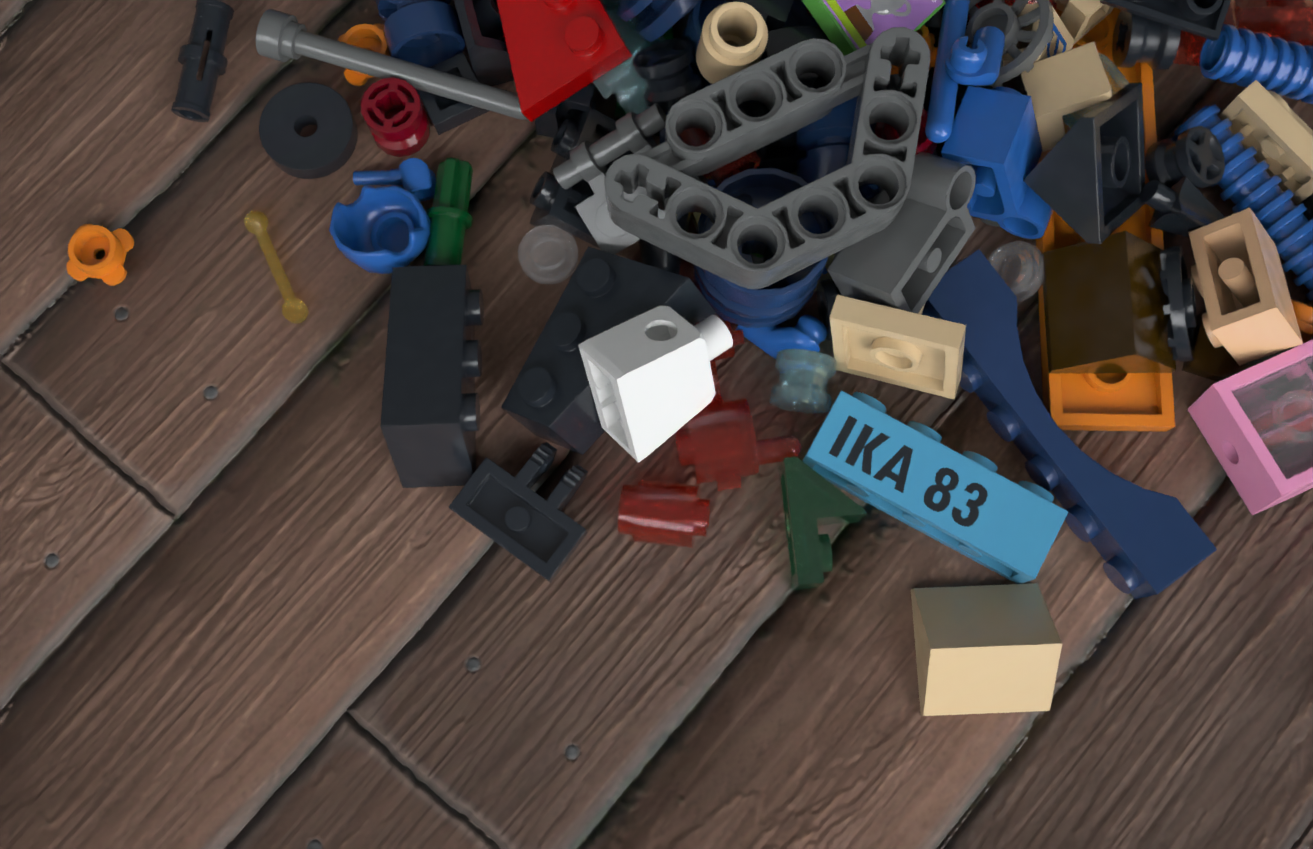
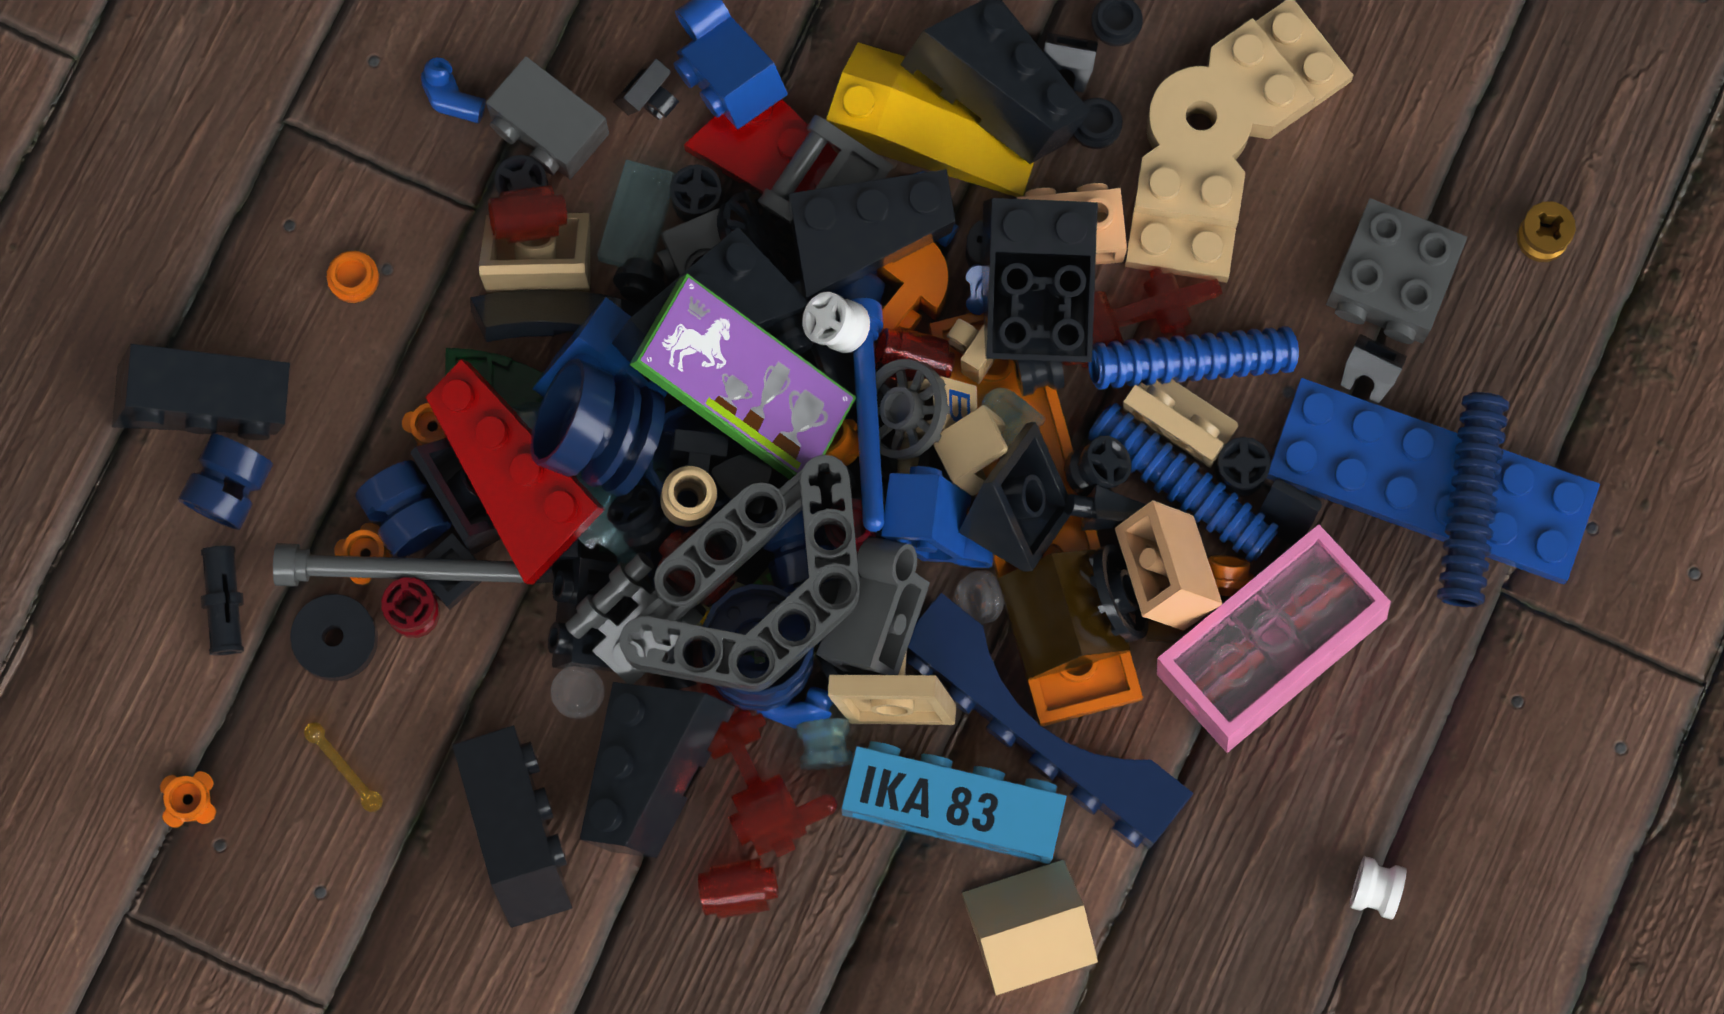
camera: 15 degrees left, 0 degrees up
(381, 228) = (429, 711): blue hair -> none
(412, 174) = (441, 653): blue hand -> none
(449, 213) = (481, 682): dark green axle -> none
(520, 518) = (618, 925): black hinge -> none
(652, 375) = (698, 780): white torso -> none
(806, 504) = (855, 847): clear green slope -> none
(979, 63) = (895, 453): blue arm -> none

